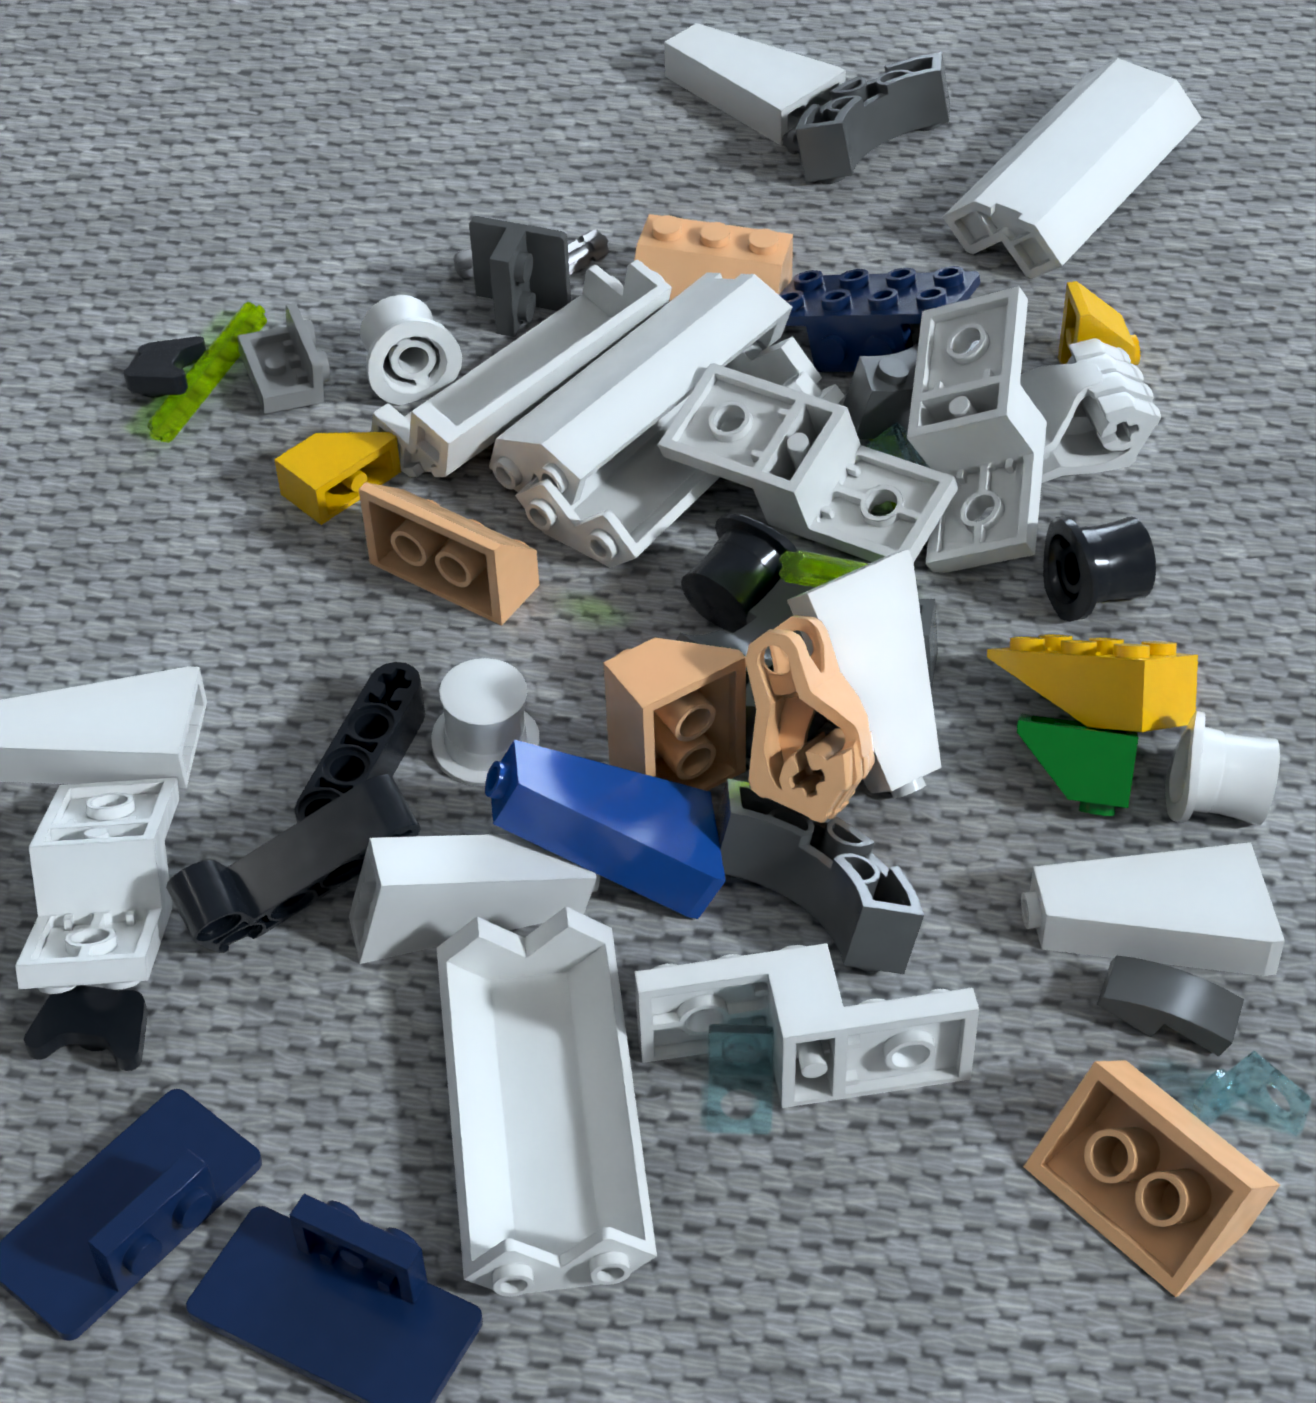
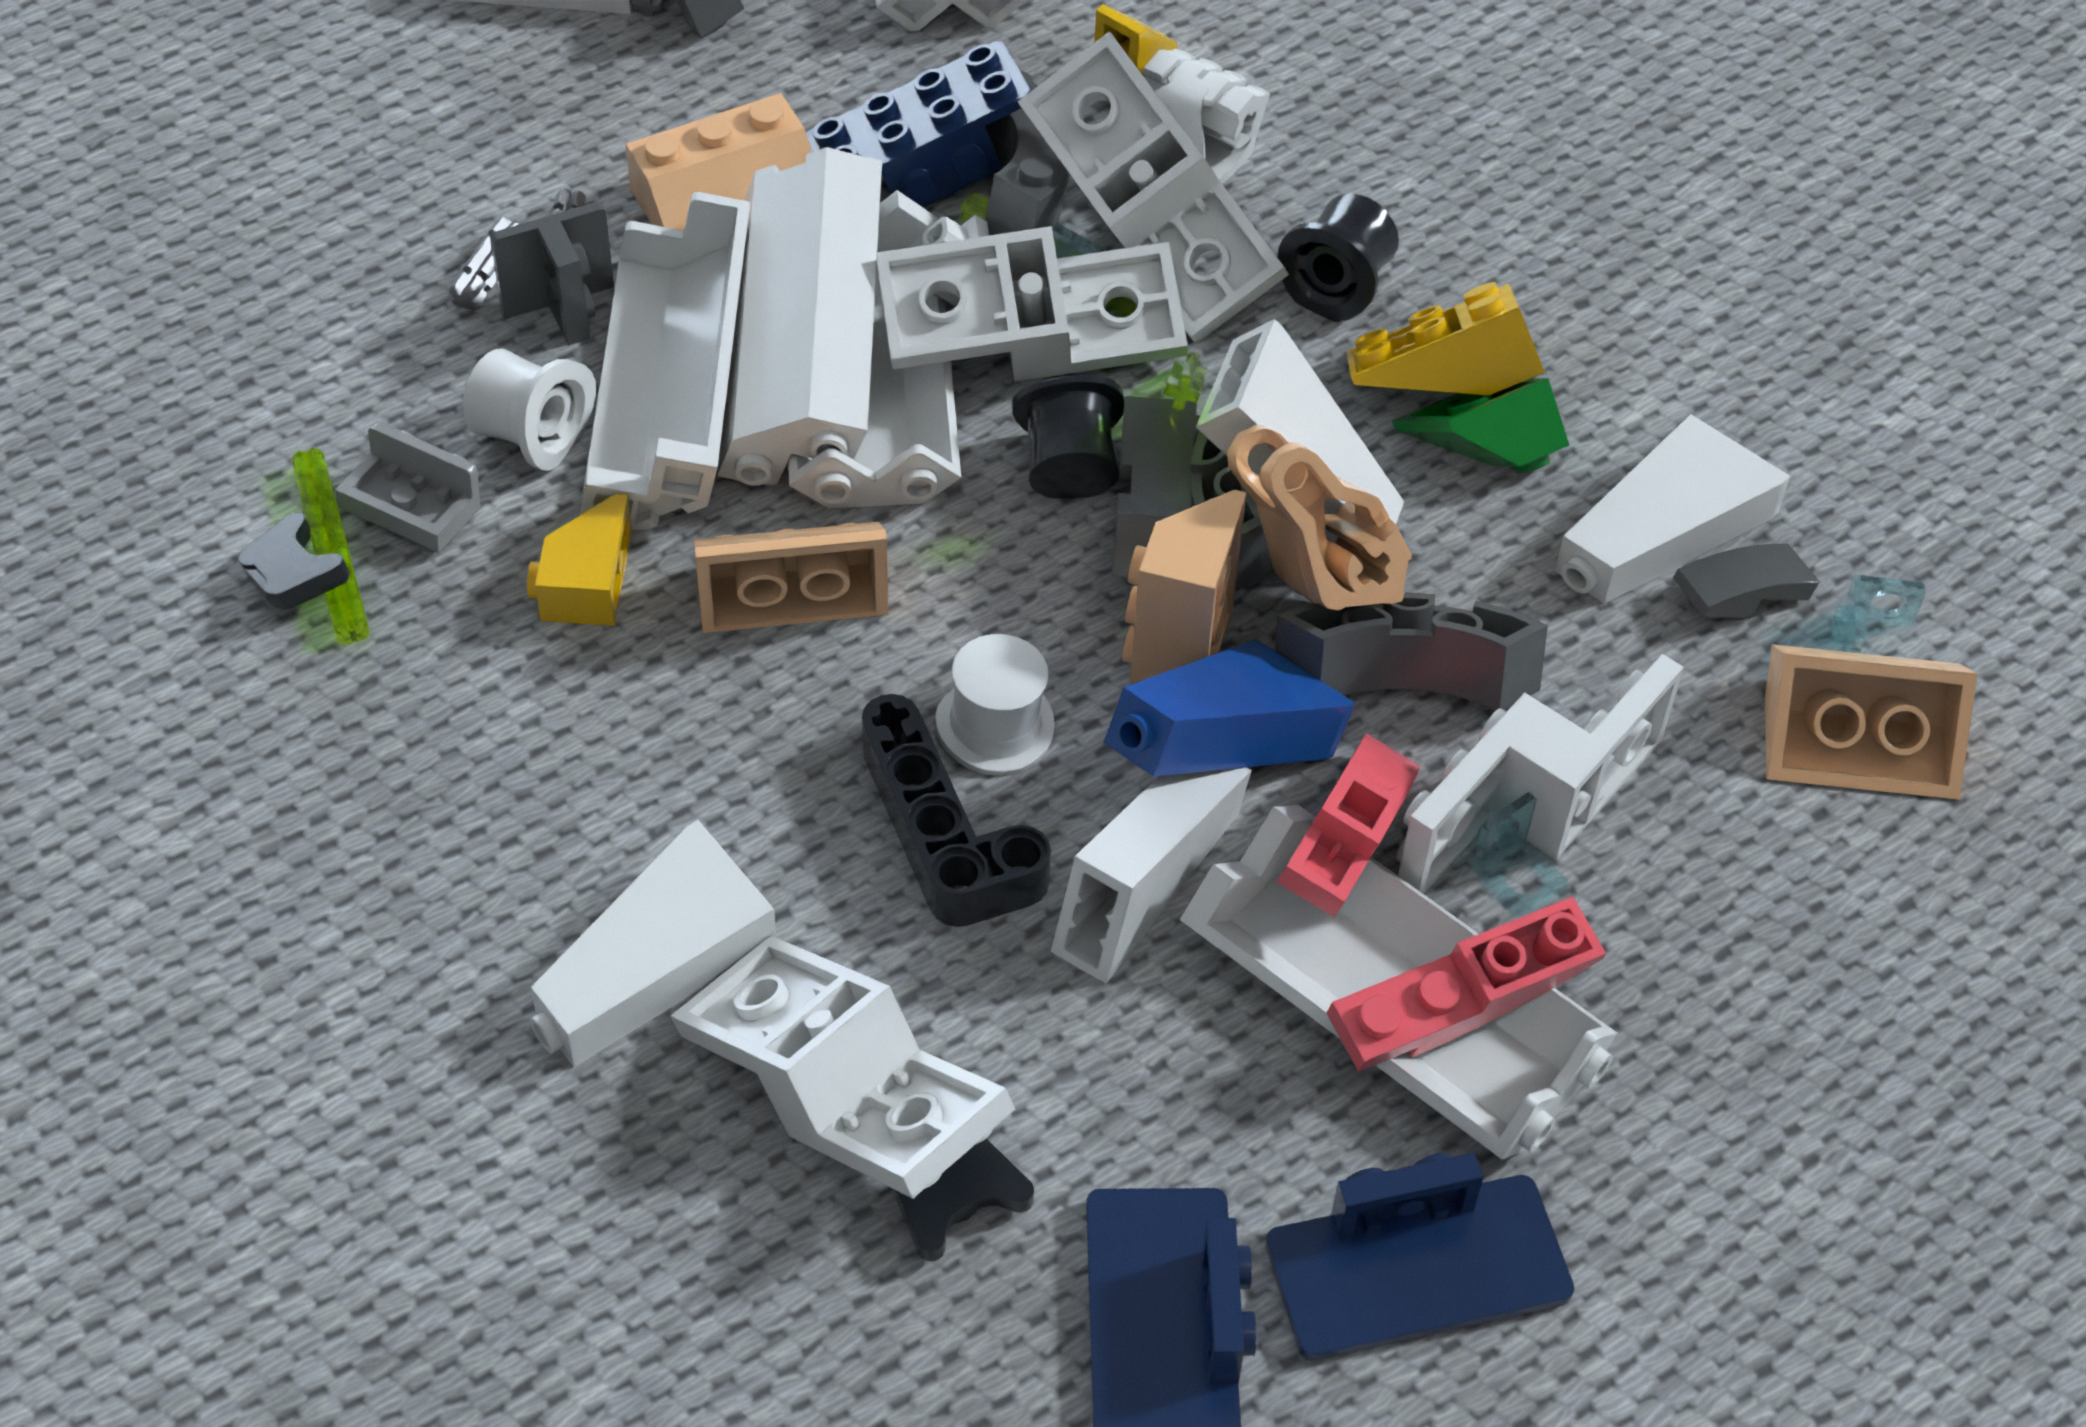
camera: 45 degrees left, 5 degrees up
(290, 869) = (979, 984): black beam -> none
(566, 1137) = (1468, 987): none -> coral slope
(605, 951) = (1349, 825): none -> coral slope
(1221, 774) = (1607, 373): white piece -> none

